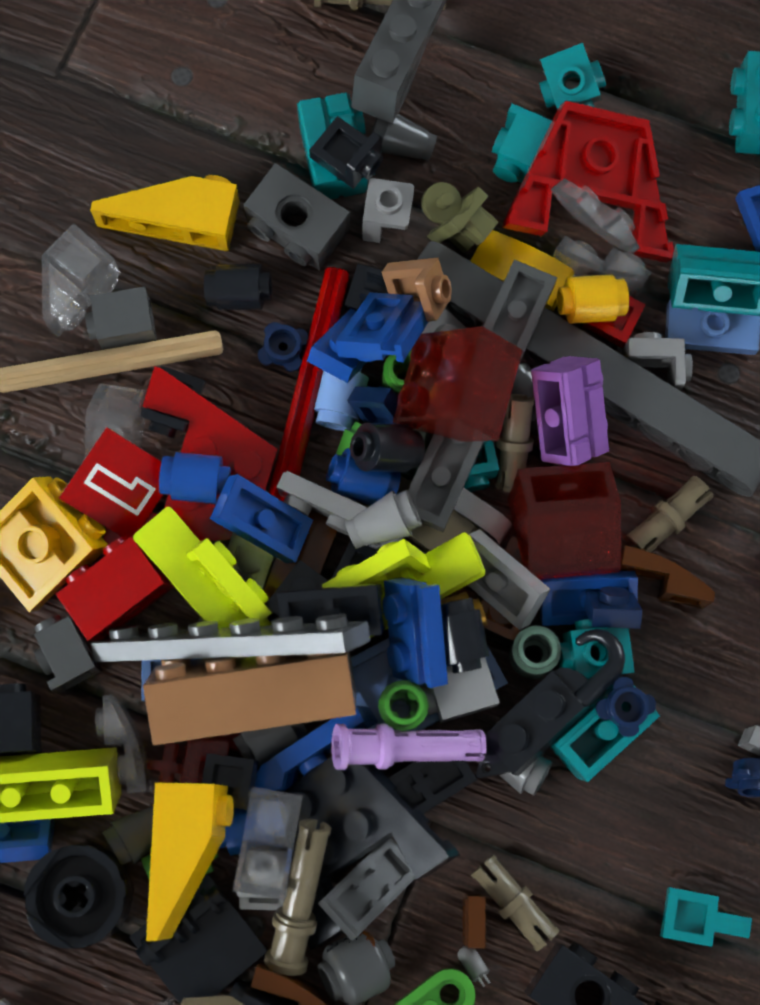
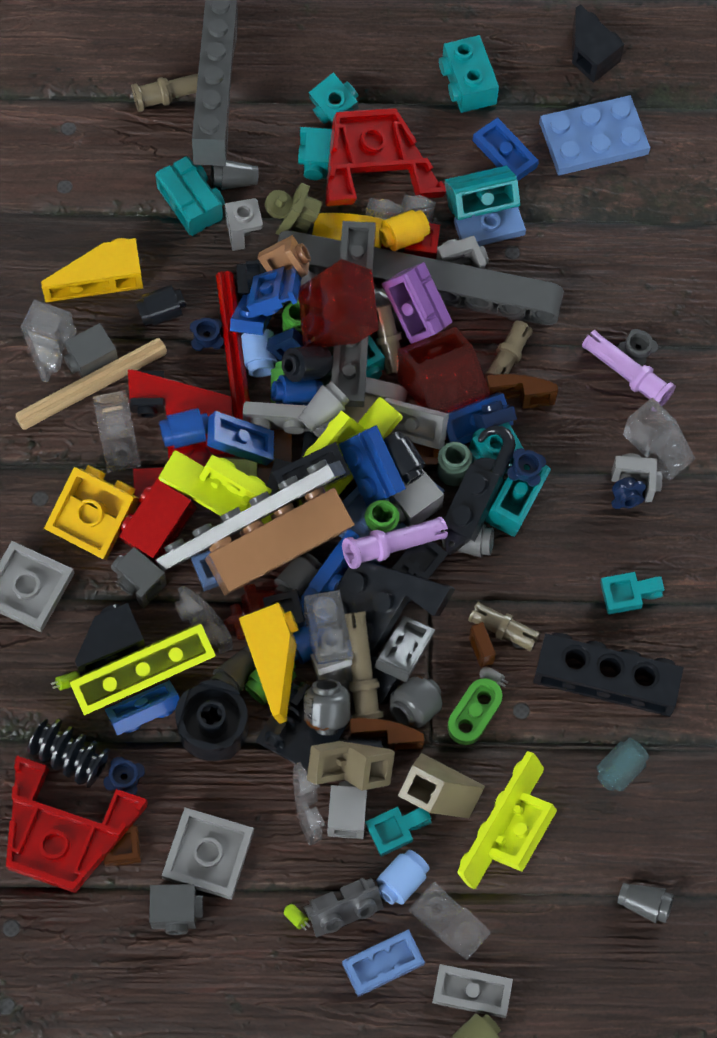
camera: 20 degrees left, 10 degrees down
(115, 484) = (132, 453): red sticker -> none
(232, 938) = (327, 706): none -> dark grey head
(285, 195) = (171, 235): dark grey brick -> none
(348, 152) = (205, 191): black bracket -> none
(586, 208) = (389, 181): clear slope -> none

